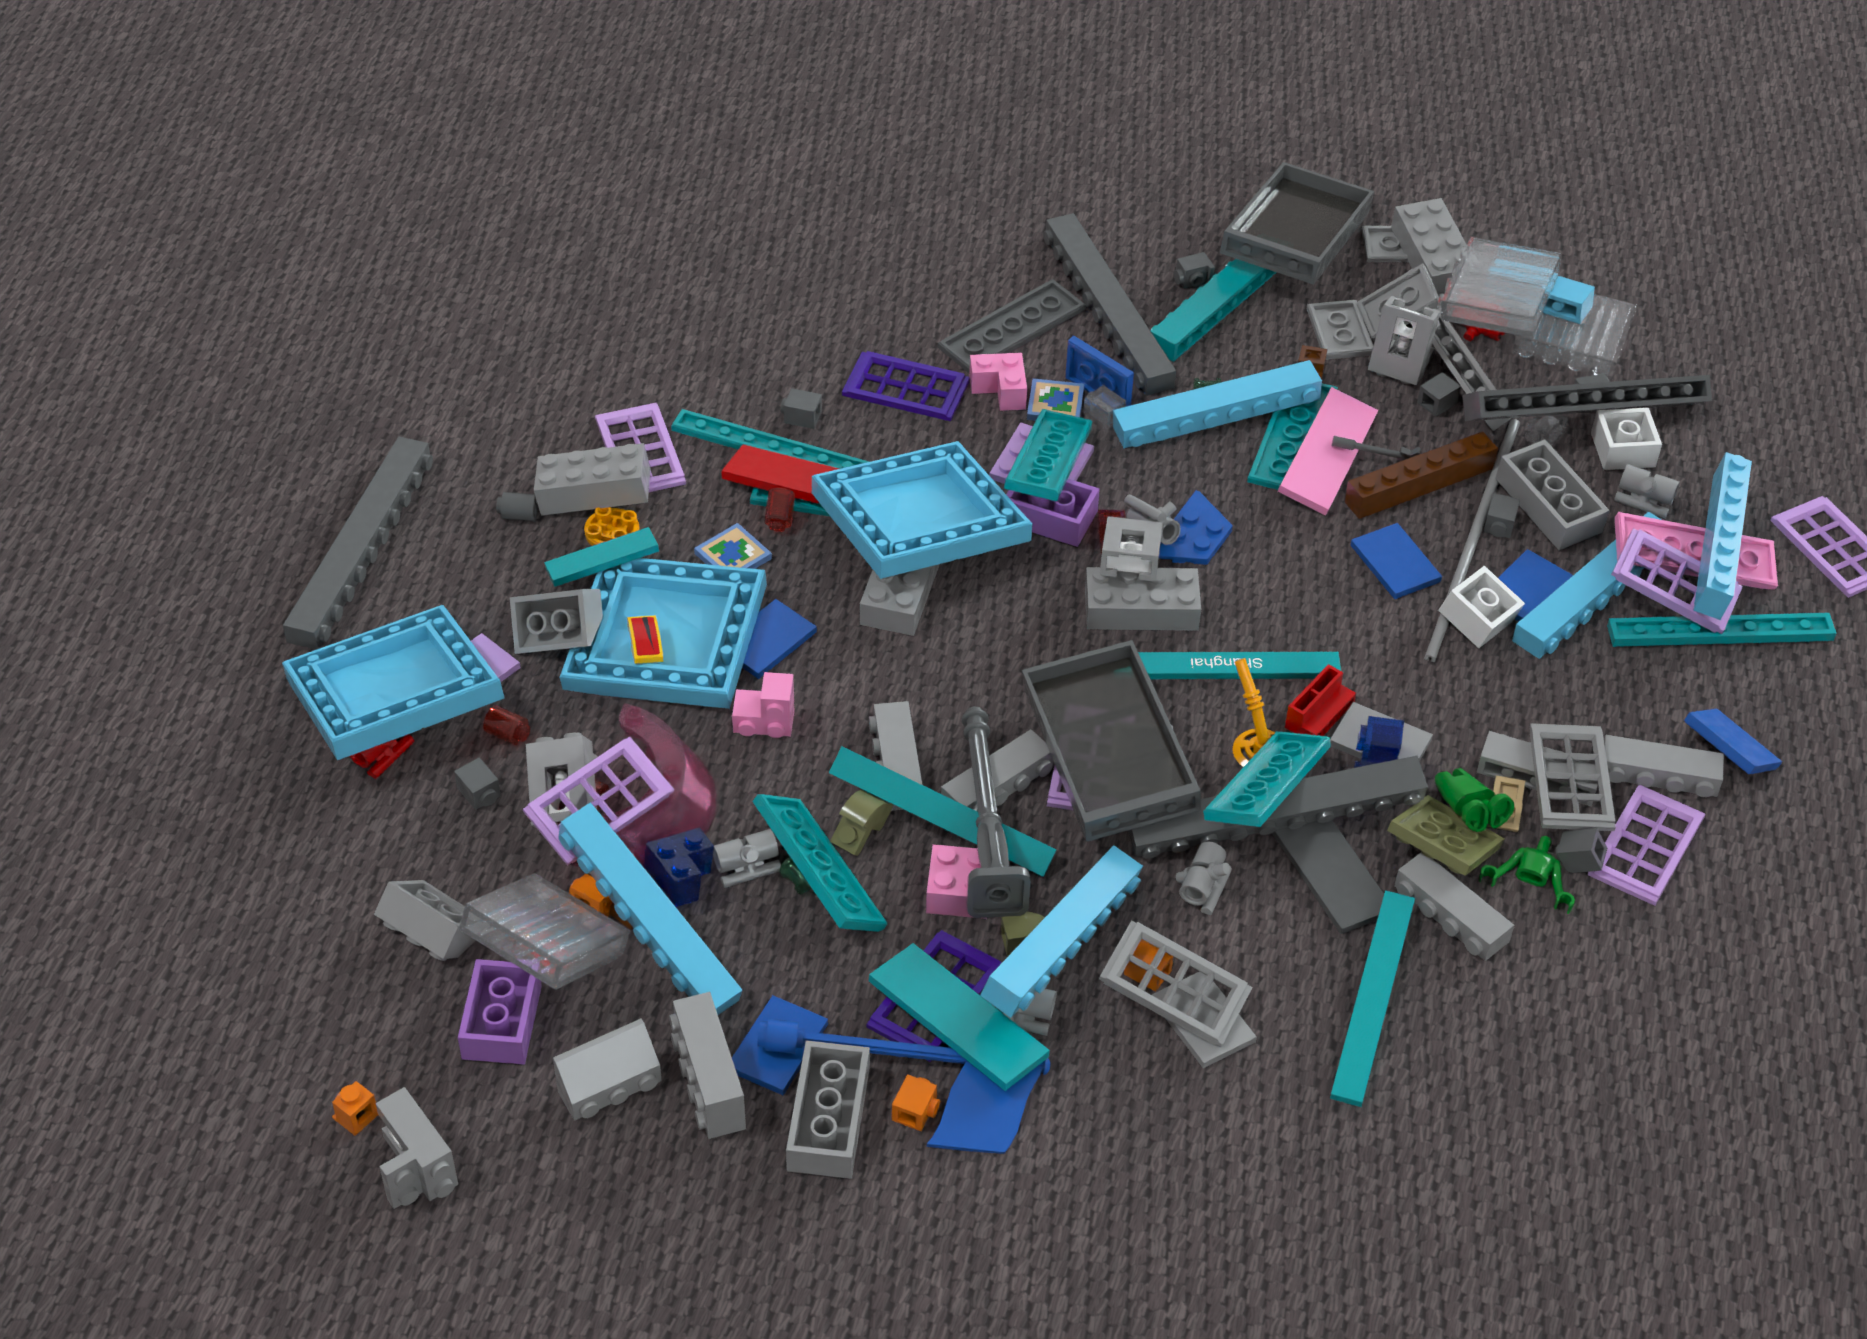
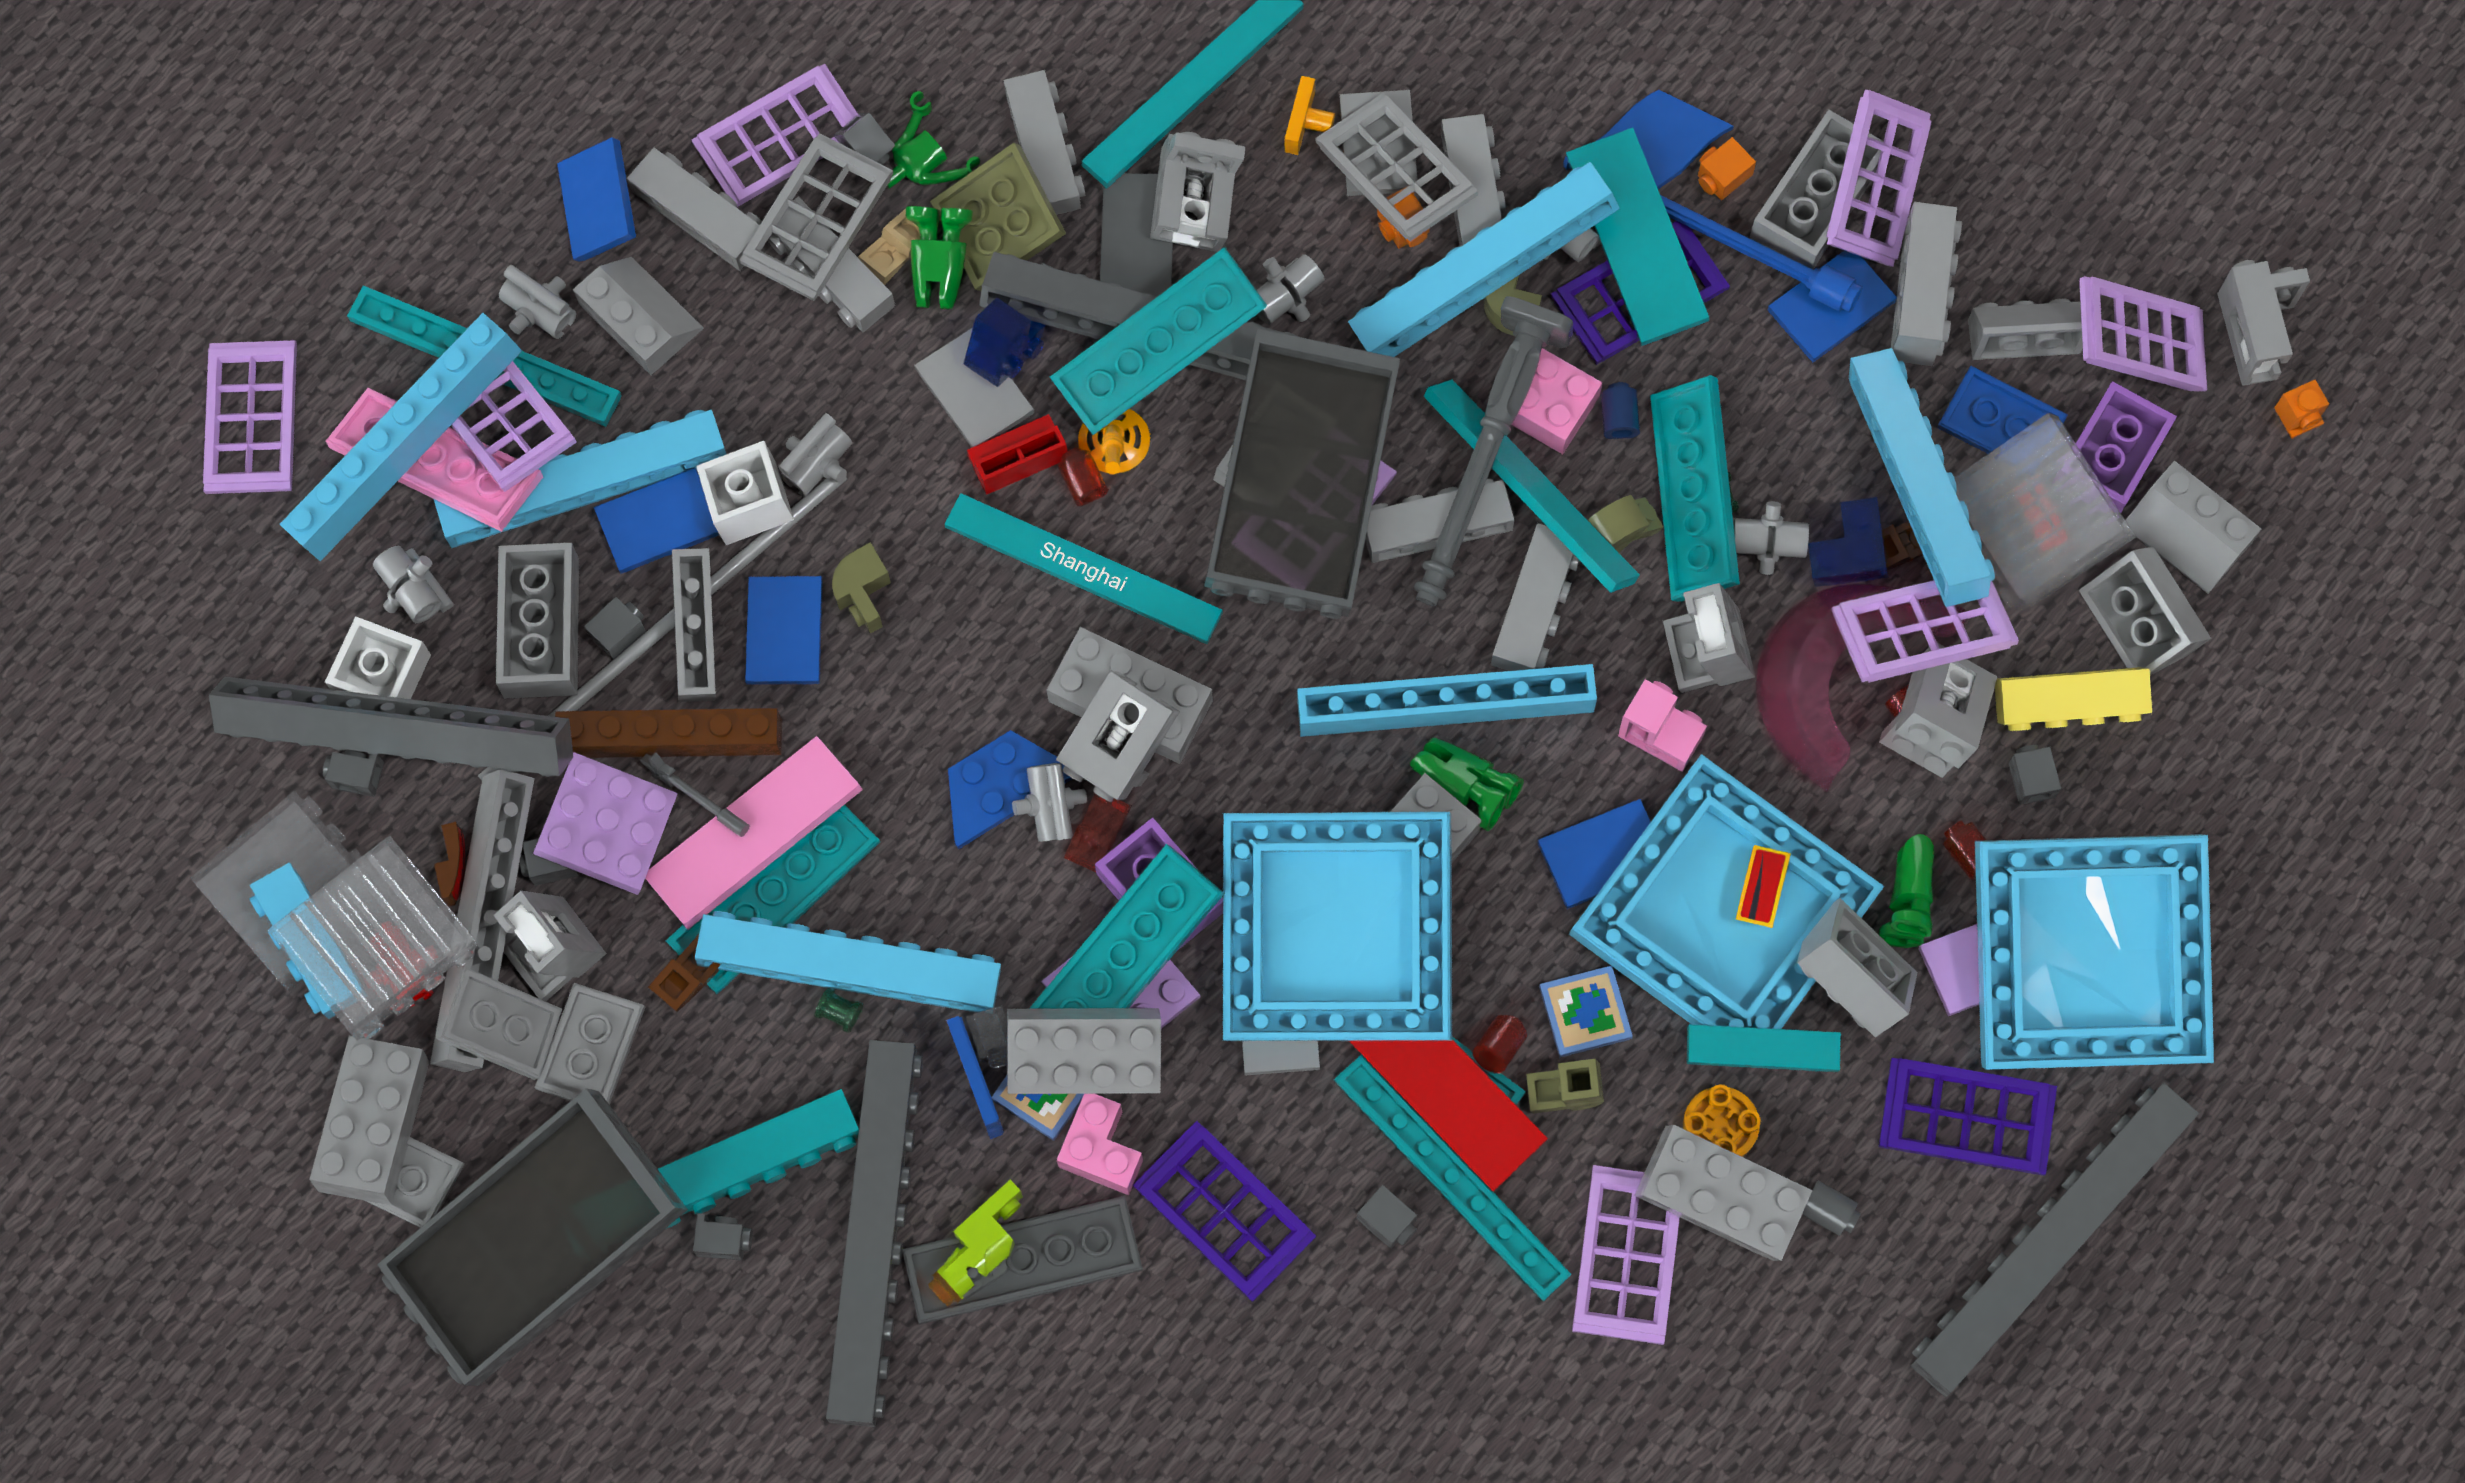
camera: 150 degrees left, 25 degrees up
(414, 993) = (2192, 527): none -> light grey slope
(467, 839) = (2073, 696): none -> light yellow brick
(497, 578) = (2039, 1126): none -> dark purple piece
(534, 665) = (1911, 895): none -> green piece
(556, 1057) = (2092, 325): none -> lavender piece
(593, 1011) = (1990, 411): none -> blue tile
(720, 500) = (1572, 1087): none -> olive brick
(752, 758) = (1709, 641): none -> light grey brick
(772, 1176) = (1896, 113): none -> lavender piece
(888, 635) = (1468, 779): none -> green piece
(903, 898) = (1620, 411): none -> dark blue brick
(924, 669) = (1446, 700): none -> medium azure brick
(1040, 308) = (984, 1249): none -> lime plate
(1040, 399) = (1083, 1051): none -> light grey brick
(1111, 1013) = (1468, 146): none -> light grey brick
(1272, 1005) = (1305, 117): none -> light orange tile
(1273, 711) = (1082, 476): none -> clear red brick
(1321, 921) = (1199, 163): none -> light grey brick
(1366, 592) = (857, 578): none -> olive brick
(1420, 413) = (605, 823): none -> lavender plate
(1452, 523) = (693, 625): none -> light grey brick
(1453, 651) = (815, 456): none -> light grey pin
(1492, 366) = (451, 872): none -> reddish brown slope
(1645, 688) = (636, 312): none -> light grey slope
(1715, 668) = (536, 303): none -> light grey pin

